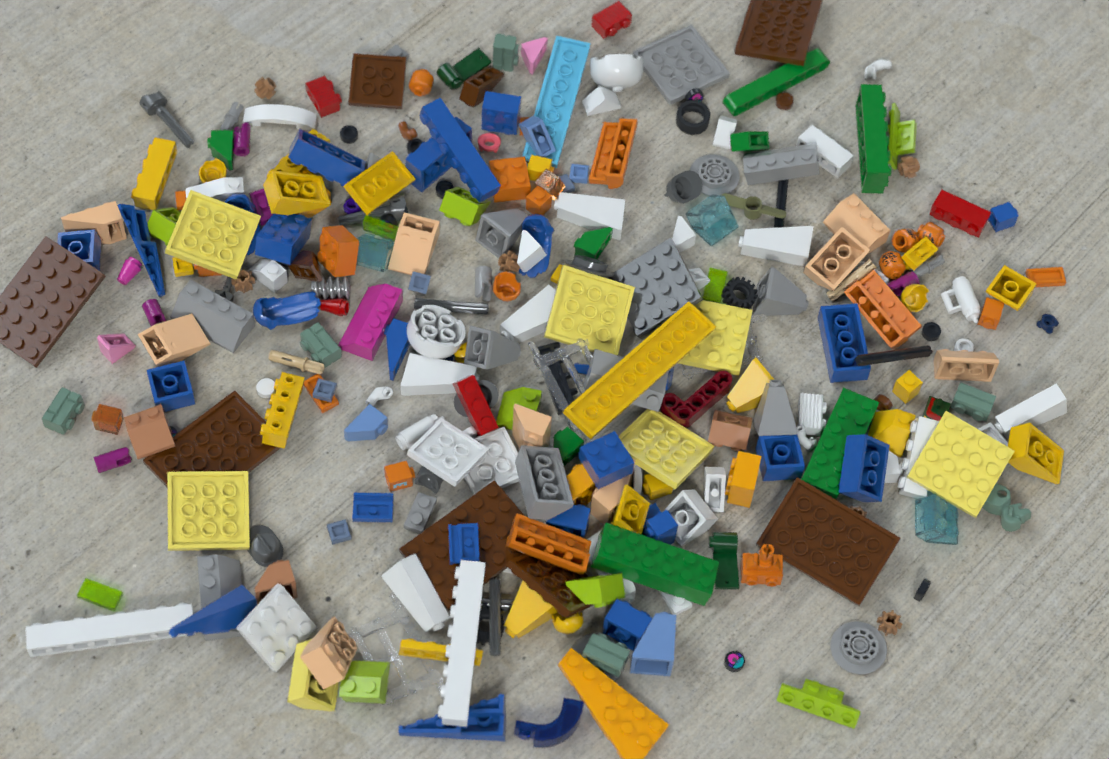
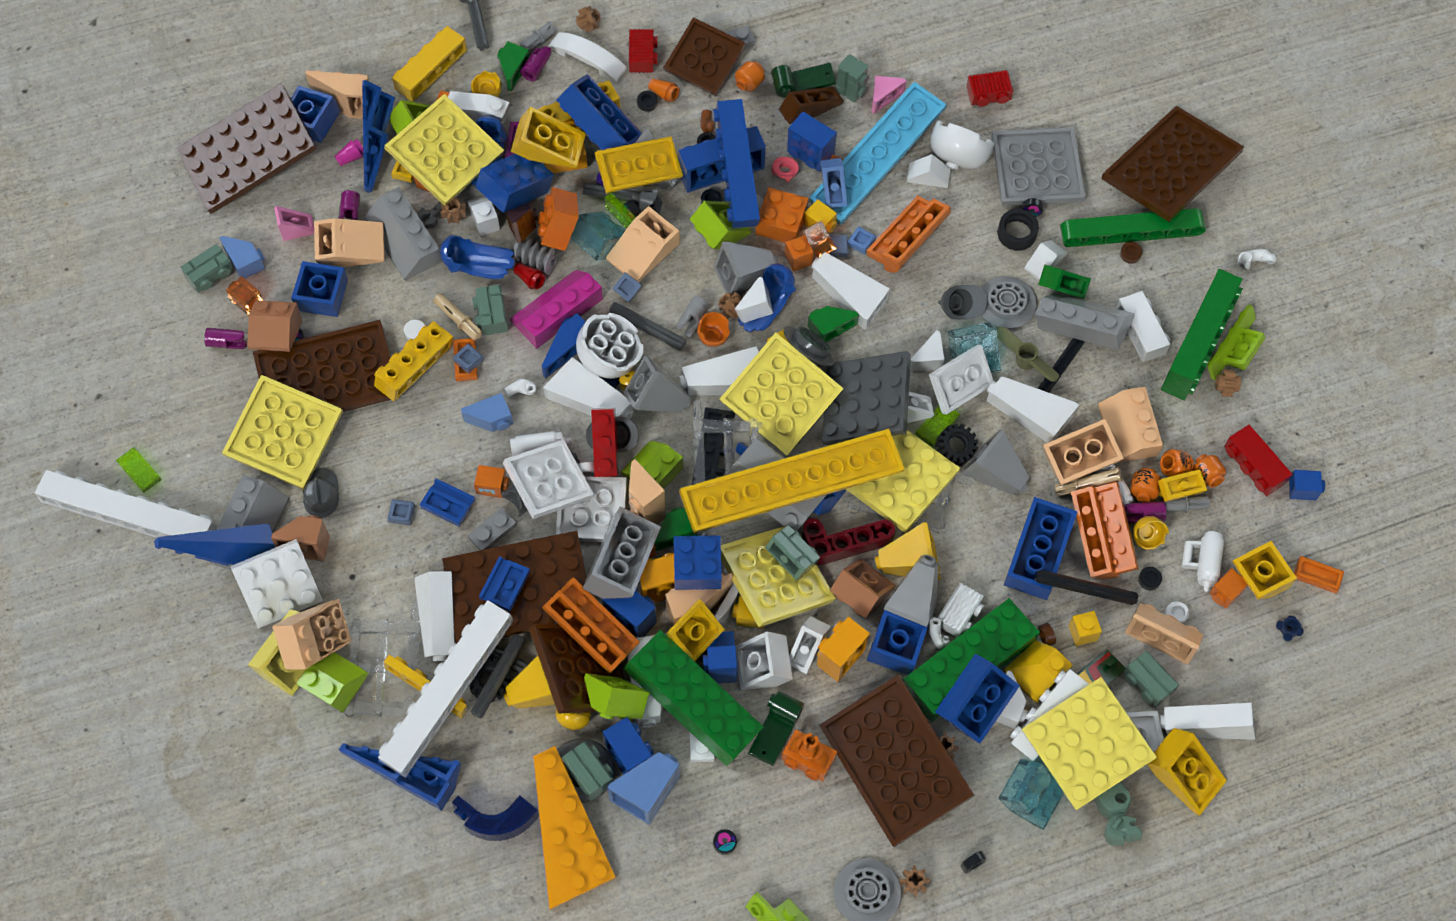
camera: 30 degrees right, 5 degrees up
(90, 387) = (243, 256): none -> medium blue slope
(359, 119) = (666, 90): none -> orange cone
(667, 424) = (792, 552): none -> sand green brick
(717, 244) = (961, 379): none -> white tile

